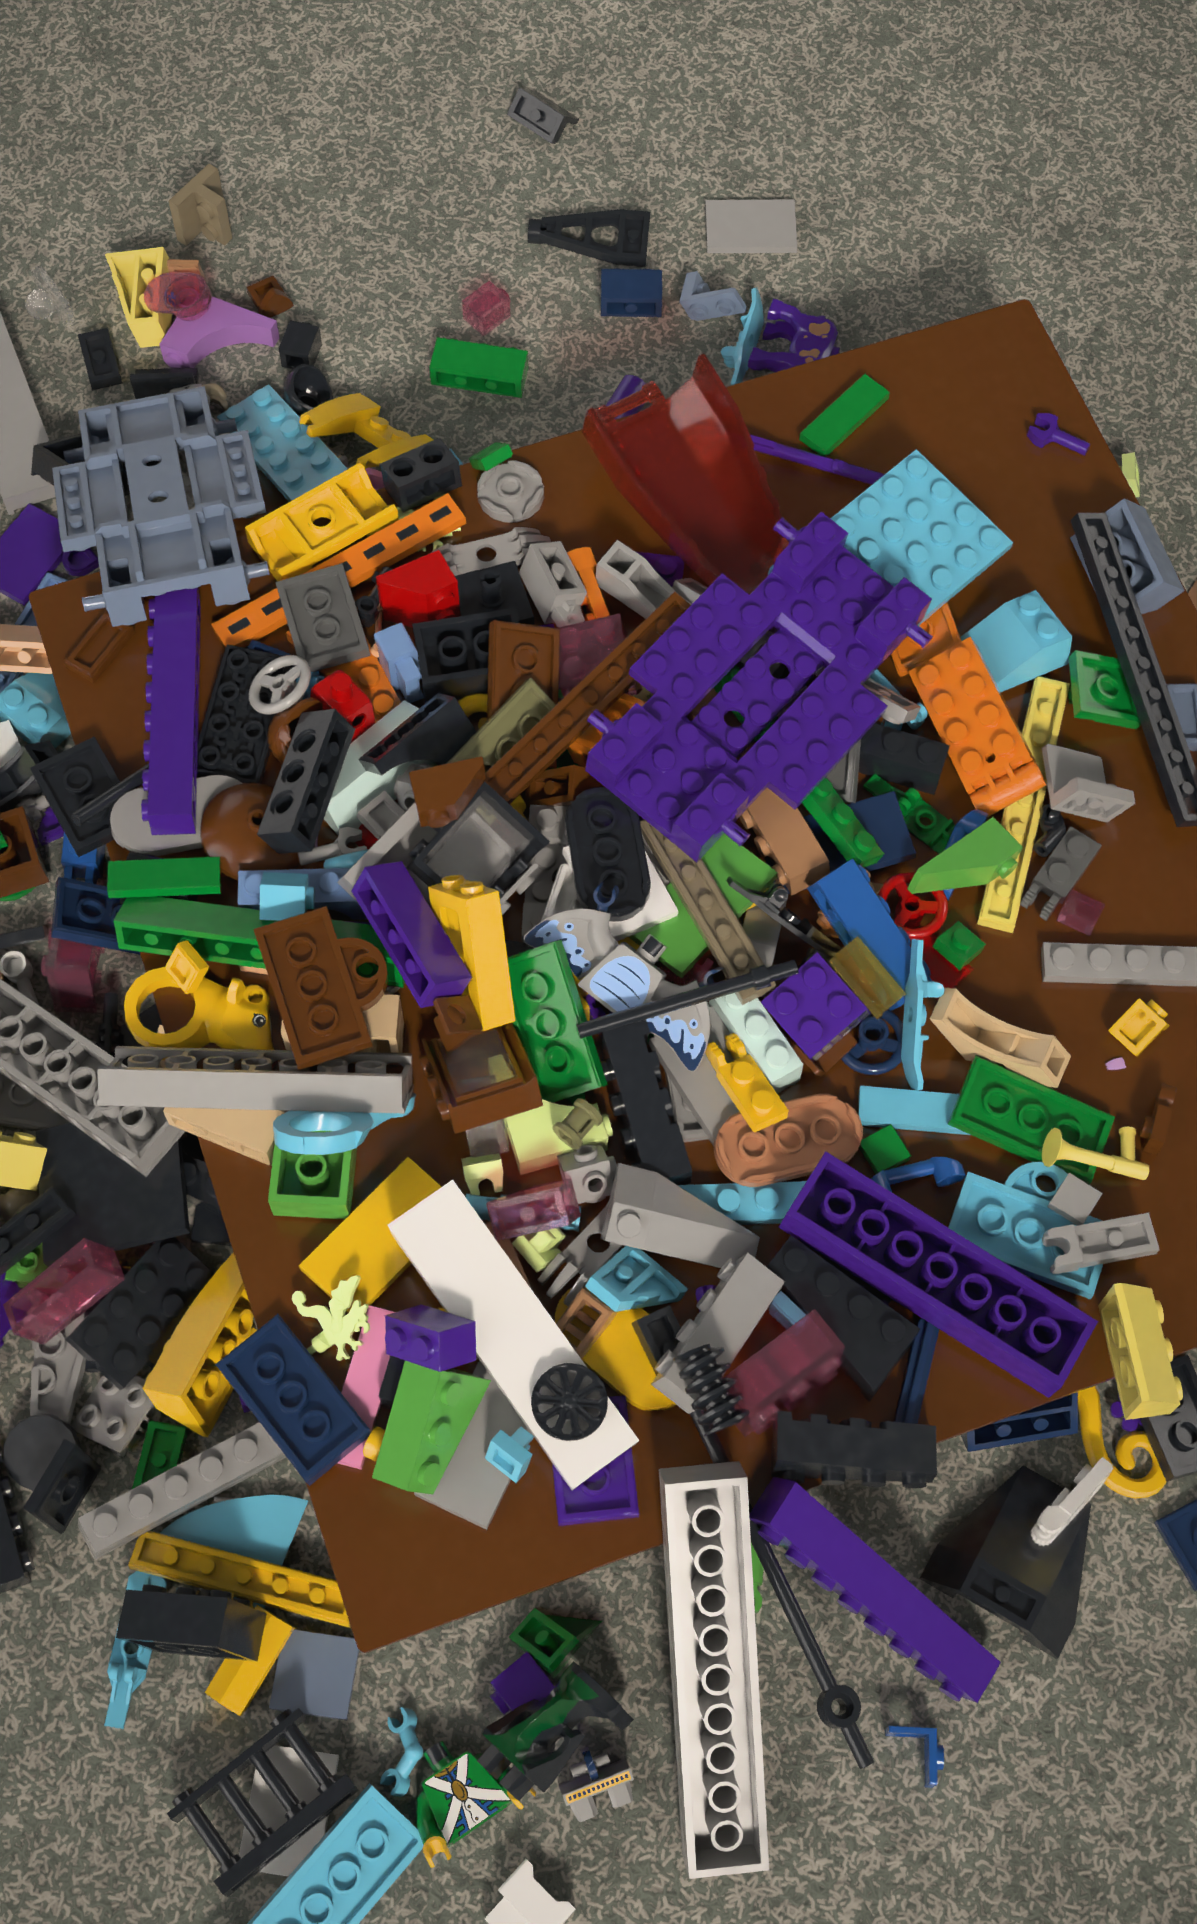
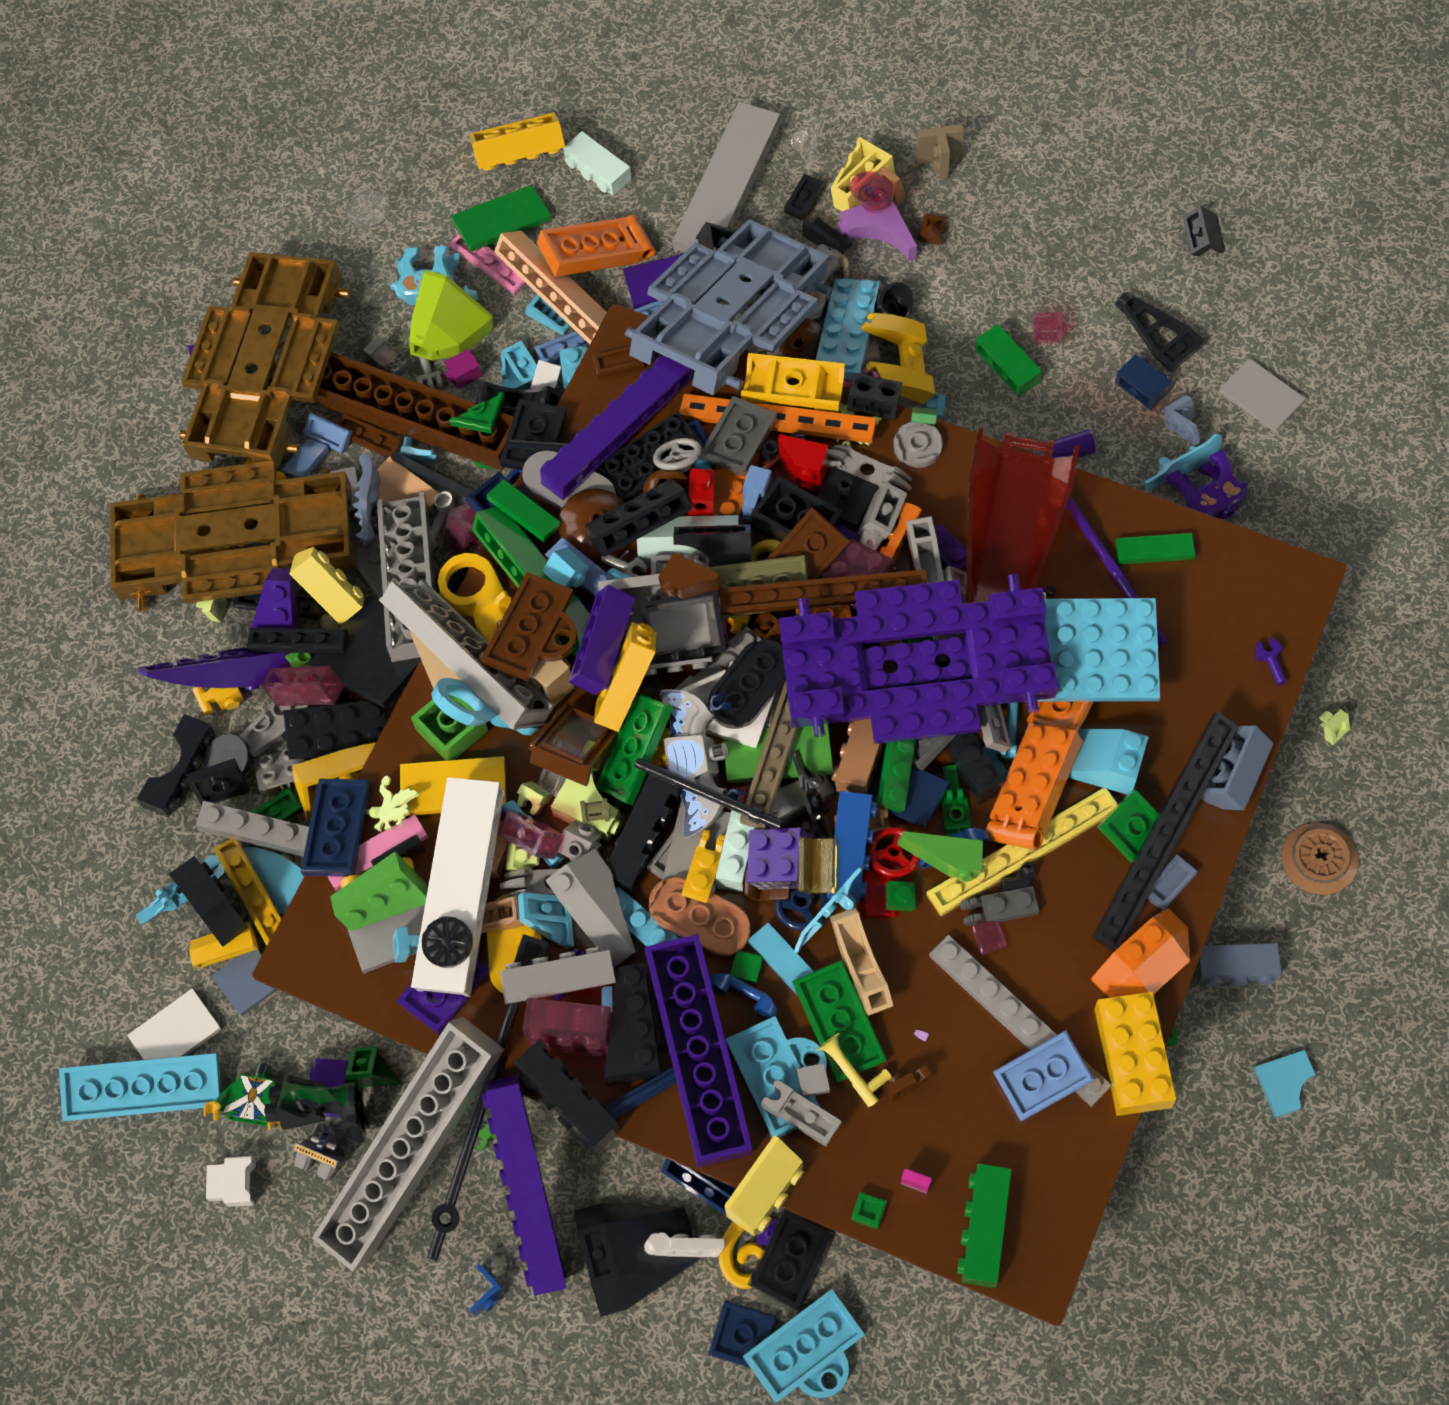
camera: 50 degrees right, 0 degrees up
(186, 967) = (490, 566): yellow tile -> none
(300, 344) = (919, 271): black brick -> none
(300, 1816) = (173, 1037): black fence -> none
(412, 1753) = (252, 1058): medium azure arm -> none
(430, 1337) = (413, 850): dark purple brick -> none
(457, 1022) = (587, 705): reddish brown bracket -> none
(711, 1387) = (514, 996): black piece -> none
(1079, 785) = (1060, 866): light grey bracket -> none
(1140, 1025) = (953, 1025): yellow bracket -> none

